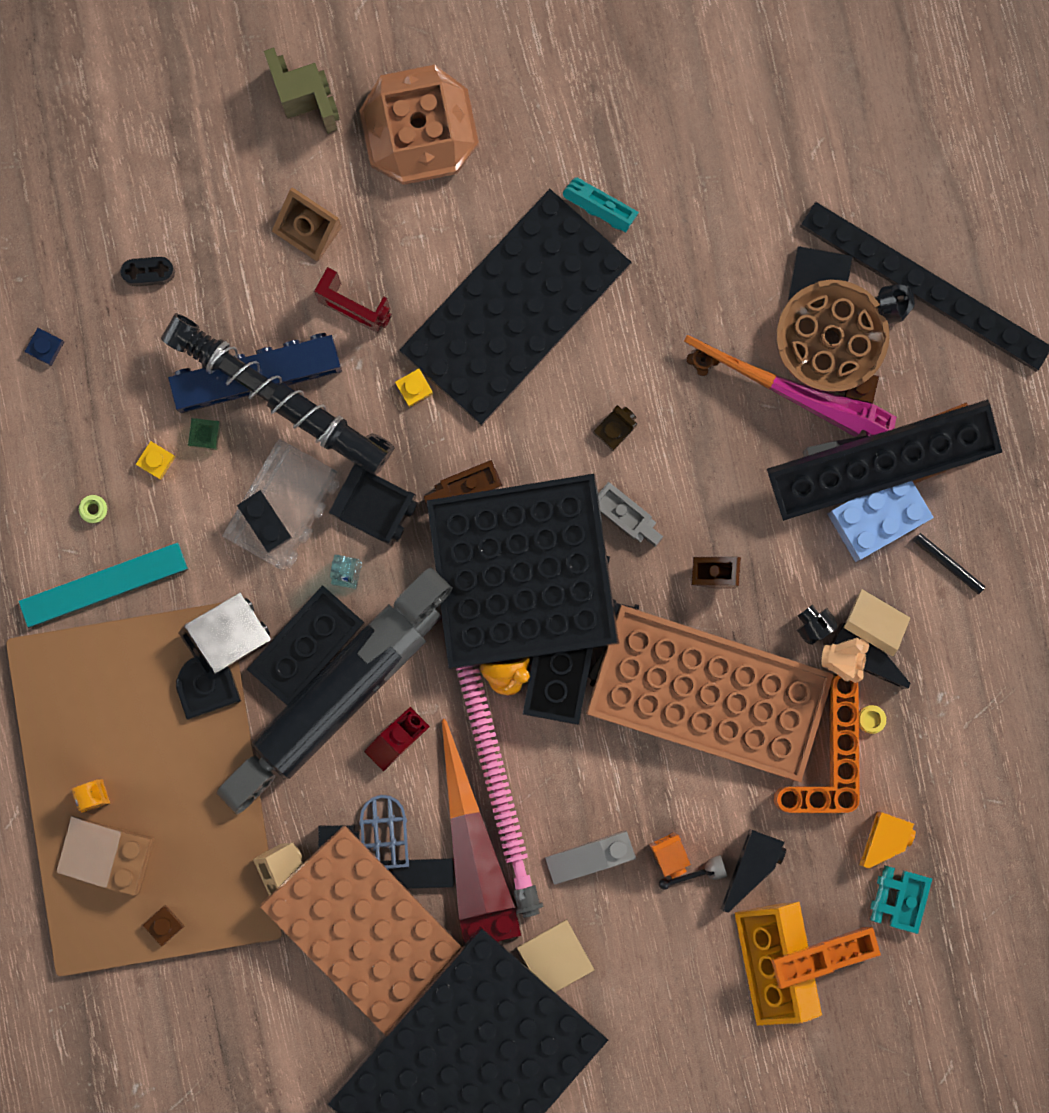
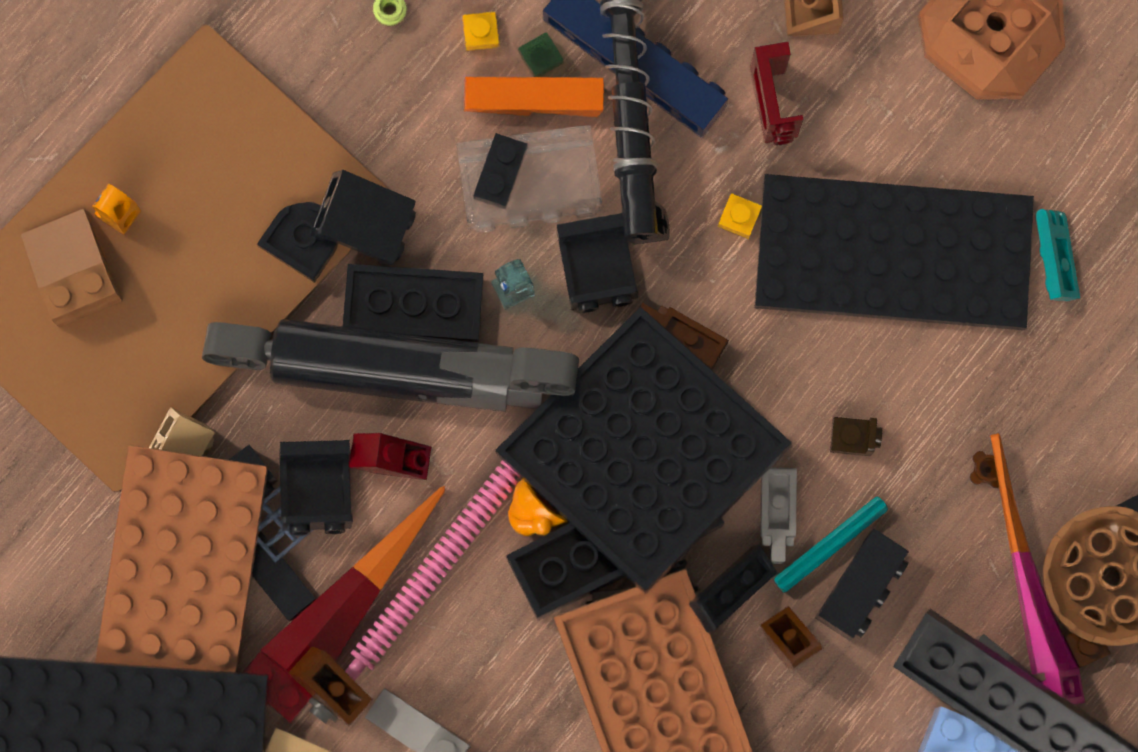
camera: 55 degrees right, 5 degrees down
(103, 585) = (326, 73): teal tile -> none
(163, 925) = (44, 372): reddish brown plate -> none
(228, 459) = (534, 95): none -> orange slope
(379, 803) = (315, 486): none -> black panel
(519, 892) = (330, 685): none -> reddish brown slope
(655, 583) = (733, 588): none -> black tile
(673, 497) = (831, 544): none -> teal axle
(716, 498) = (863, 585): none -> black brick

